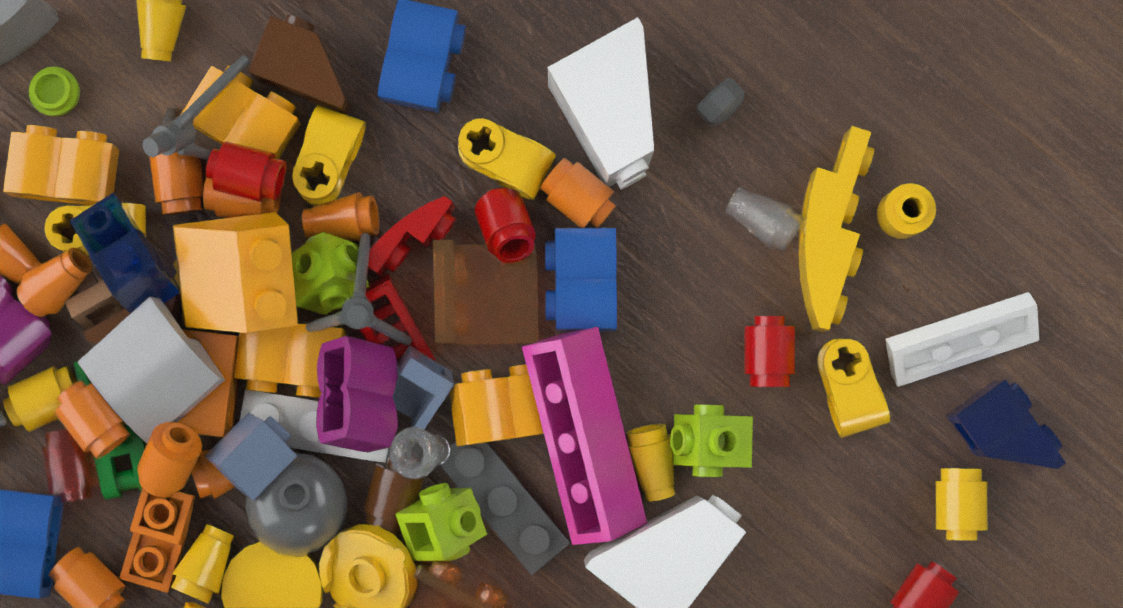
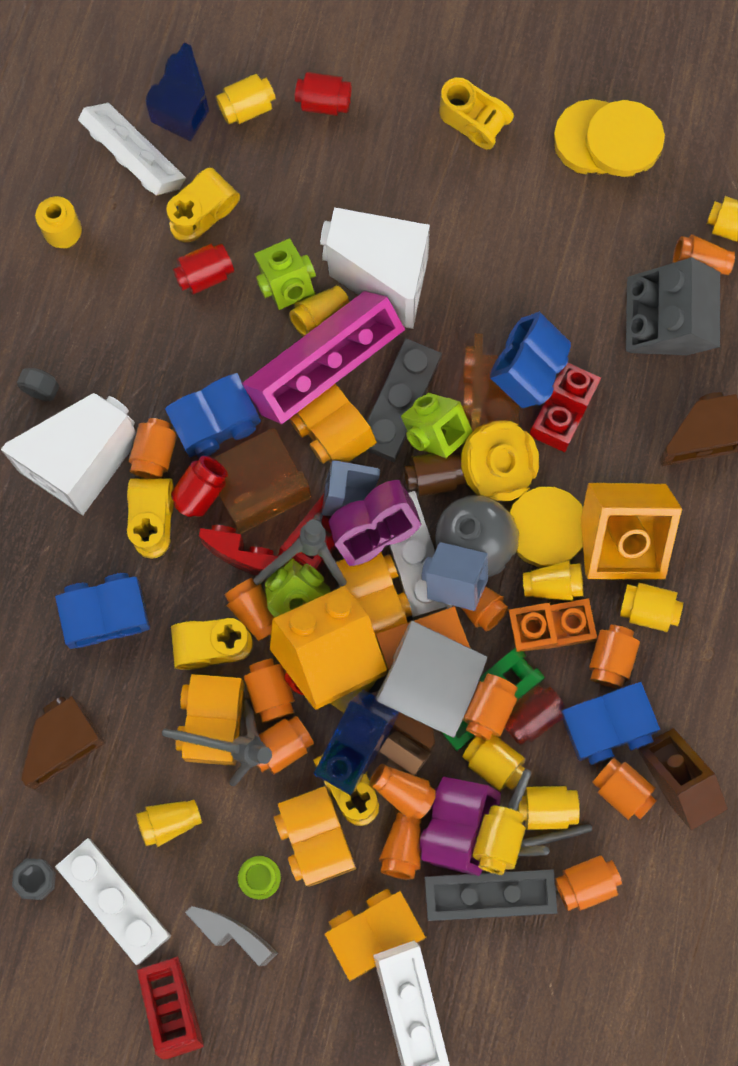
camera: 110 degrees left, 10 degrees down
(168, 459) = (490, 633): orange brick -> none
(246, 172) = (249, 683): red brick -> none
(298, 64) = (149, 696): reddish brown slope -> none
(418, 452) = (404, 457): clear cone -> none
(765, 218) = (108, 315): clear cone -> none
(826, 249) = (112, 266): yellow slope -> none

